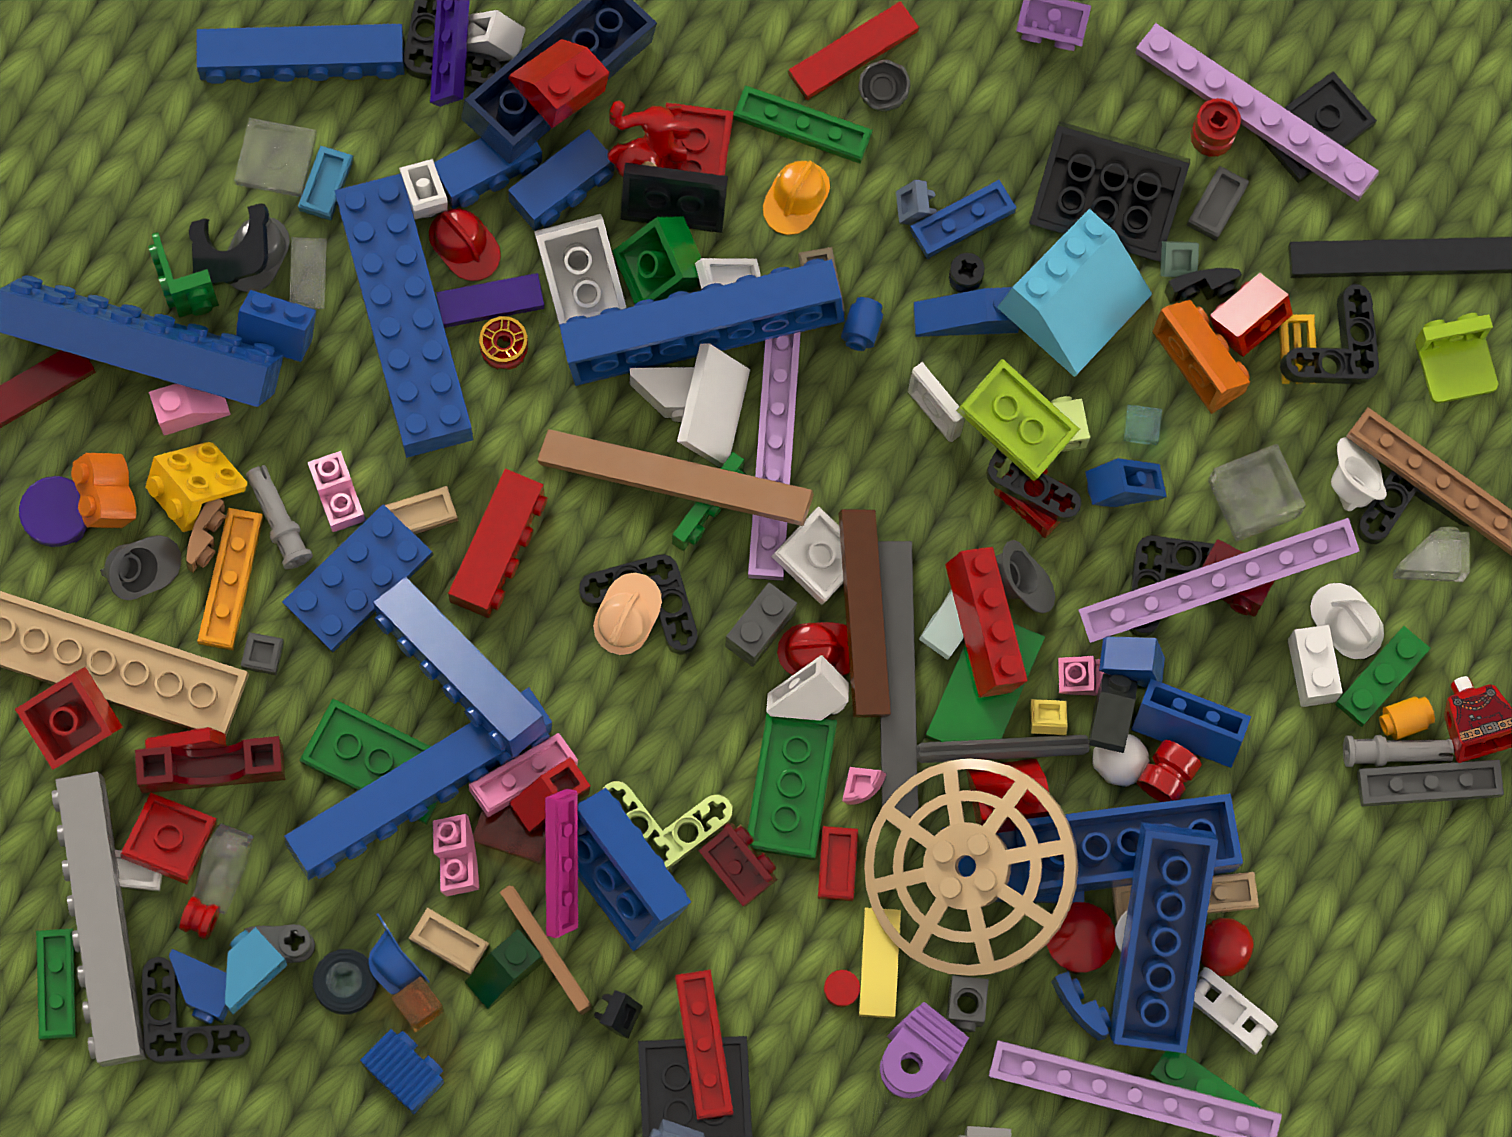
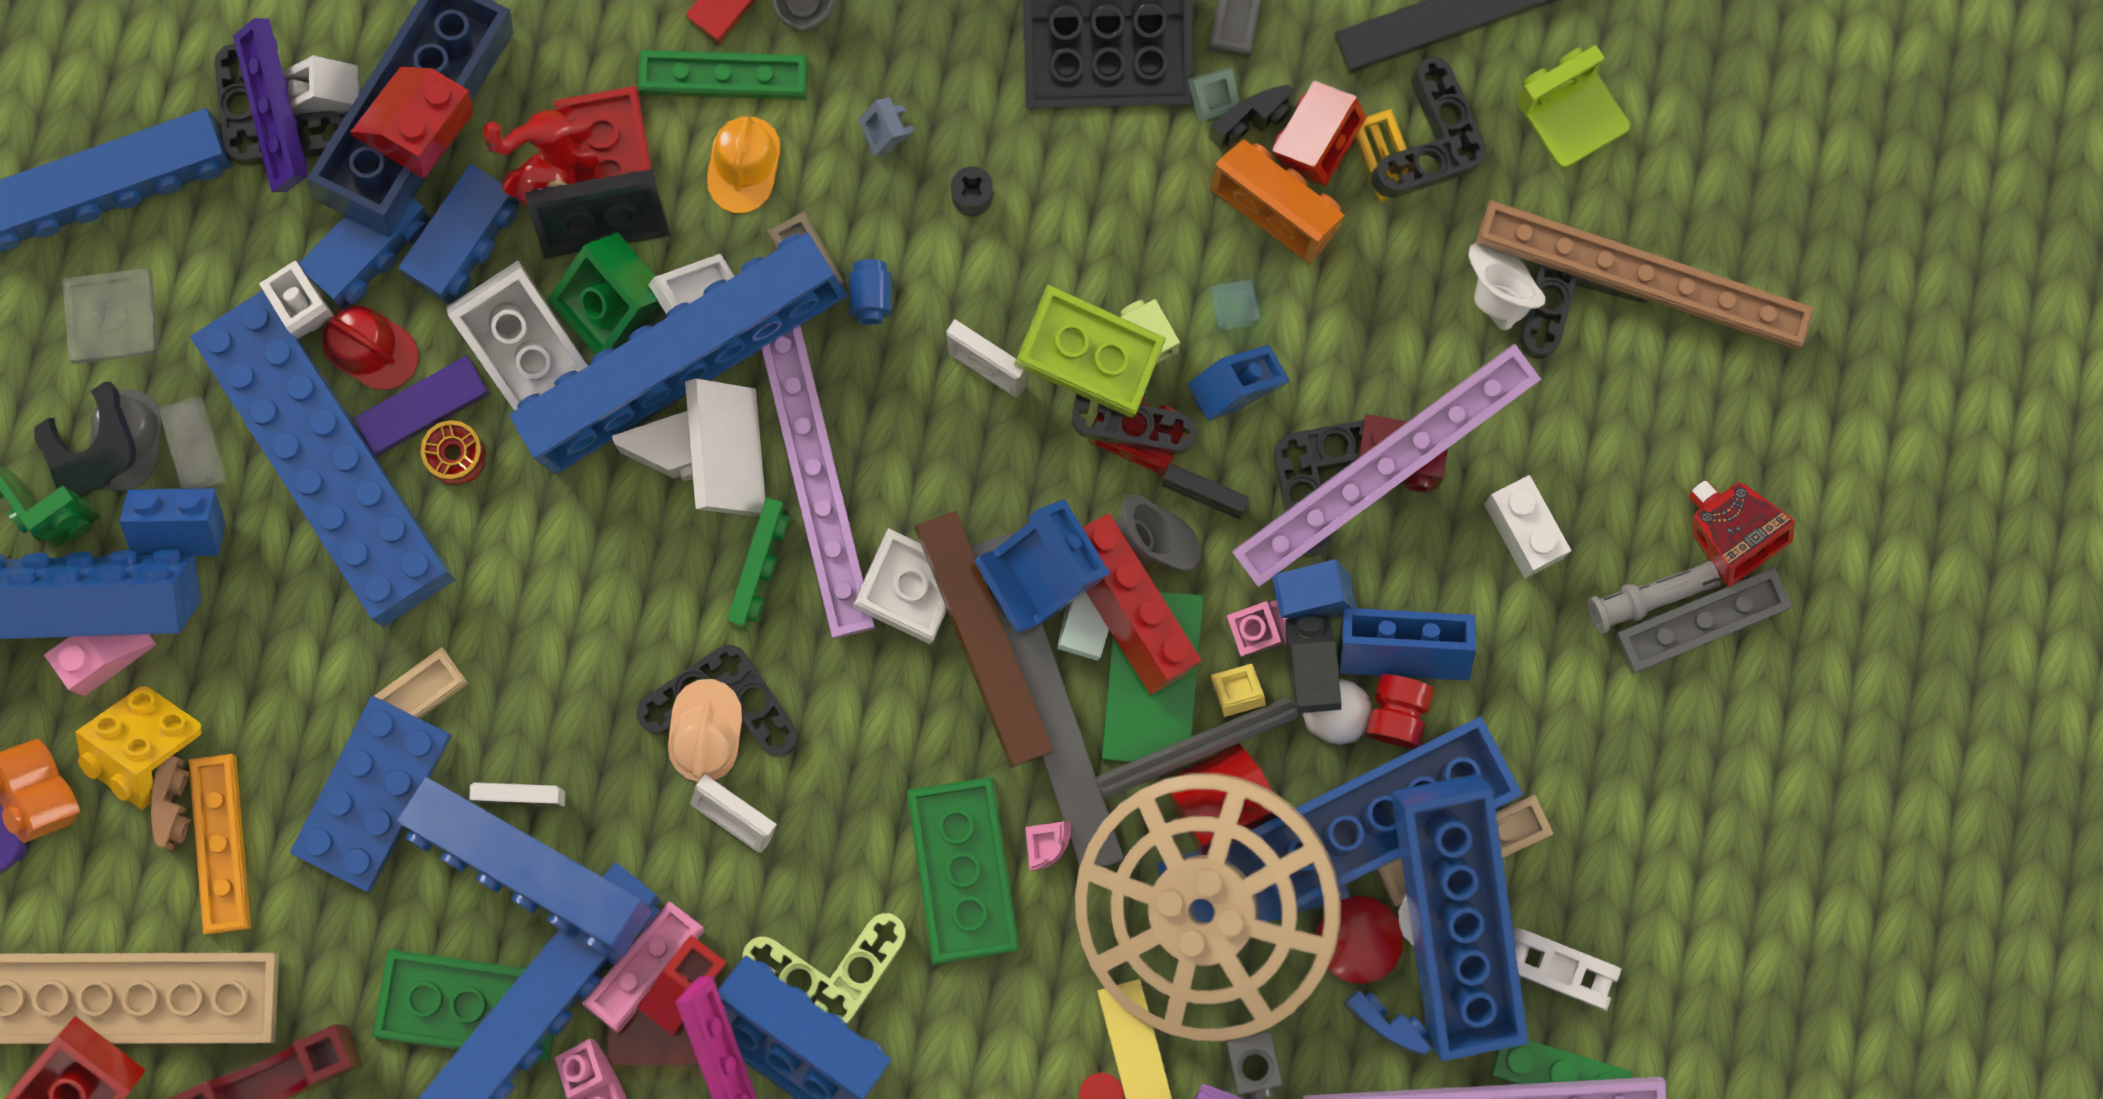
camera: 15 degrees left, 5 degrees up
(142, 566) = (106, 868): dark grey piece -> none
(192, 740) = (227, 1063): red tile -> none
(262, 653) = (286, 922): dark grey tile -> none
(283, 530) = (264, 766): light grey pin -> none
(327, 175) = (179, 316): dark azure tile -> none
(336, 491) = (312, 697): bright pink slope -> none
(470, 614) = (517, 794): none -> white tile
(497, 543) = (523, 696): red brick -> none
(628, 682) = (732, 814): none -> white tile
(676, 477) = (709, 550): medium nougat tile -> none
(739, 864) = (933, 988): dark red bracket -> none
(760, 624) = (866, 692): dark grey brick -> none
(809, 641) = (939, 700): red piece -> none
(810, 693) = (950, 756): white slope -> none
(837, 863) = (1048, 946): red tile -> none
(928, 571) = (1042, 567): none -> blue panel
(963, 219) = (947, 127): blue plate -> none
(963, 314) = (991, 238): blue slope -> none
(1072, 558) = (1205, 491): none -> black tile
(1077, 293) = (1110, 175): medium azure slope -> none
(1226, 946) = (1533, 893): red hair -> none
(1256, 492) = (1394, 343): clear brick -> none
(1351, 619) = (1548, 454): white piece -> none
(1382, 676) = (1607, 511): green plate -> none
(1407, 717) = (1652, 552): light orange brick -> none
(1438, 558) = (1627, 350): clear slope -> none

